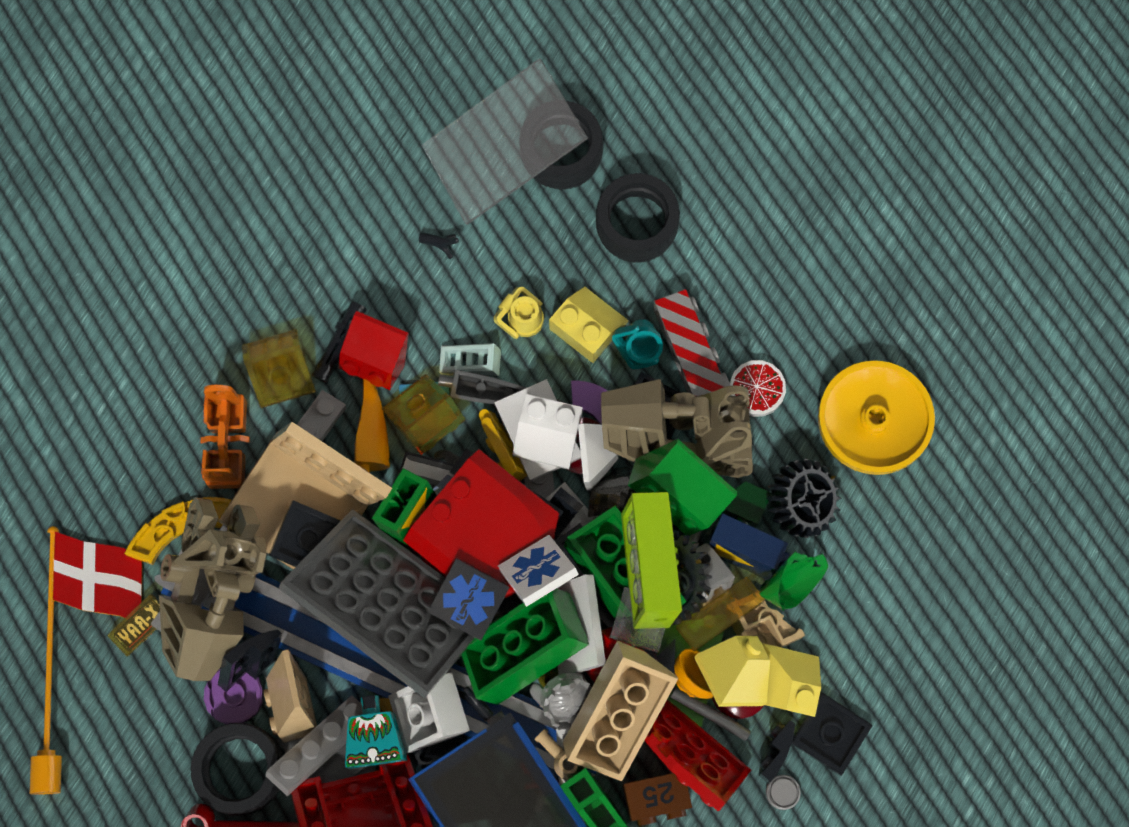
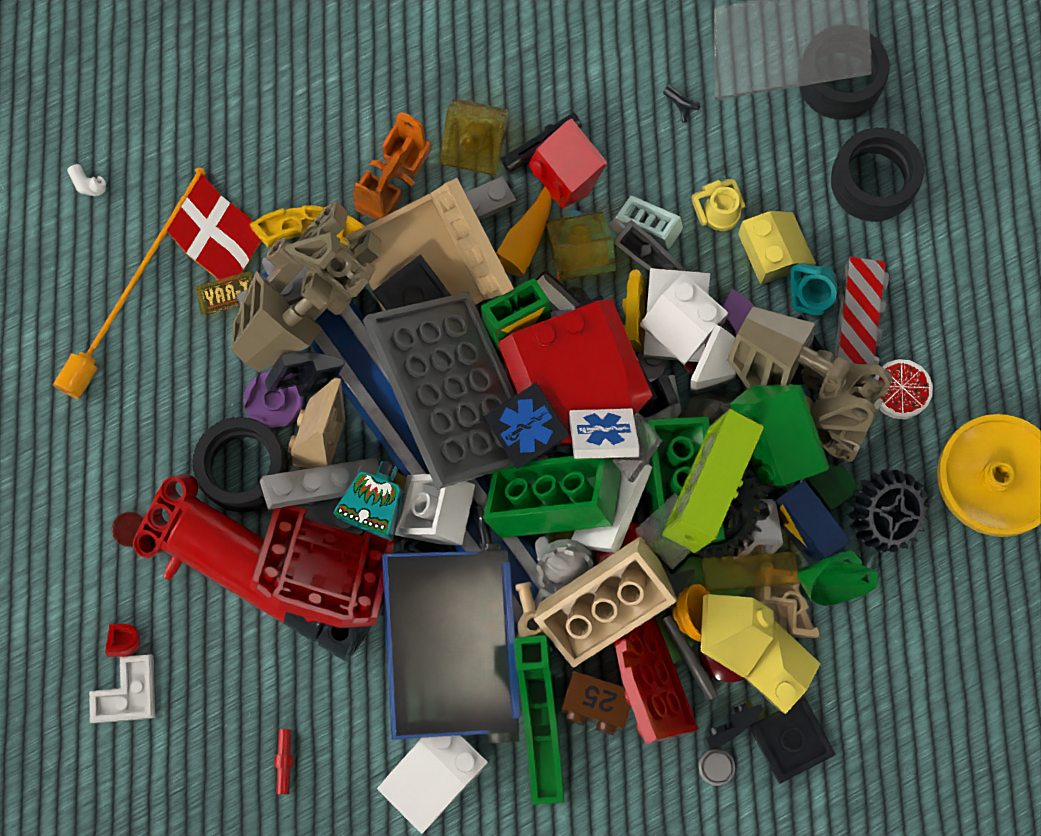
camera: 30 degrees right, 0 degrees up
(580, 559) = (648, 443): none -> clear piece

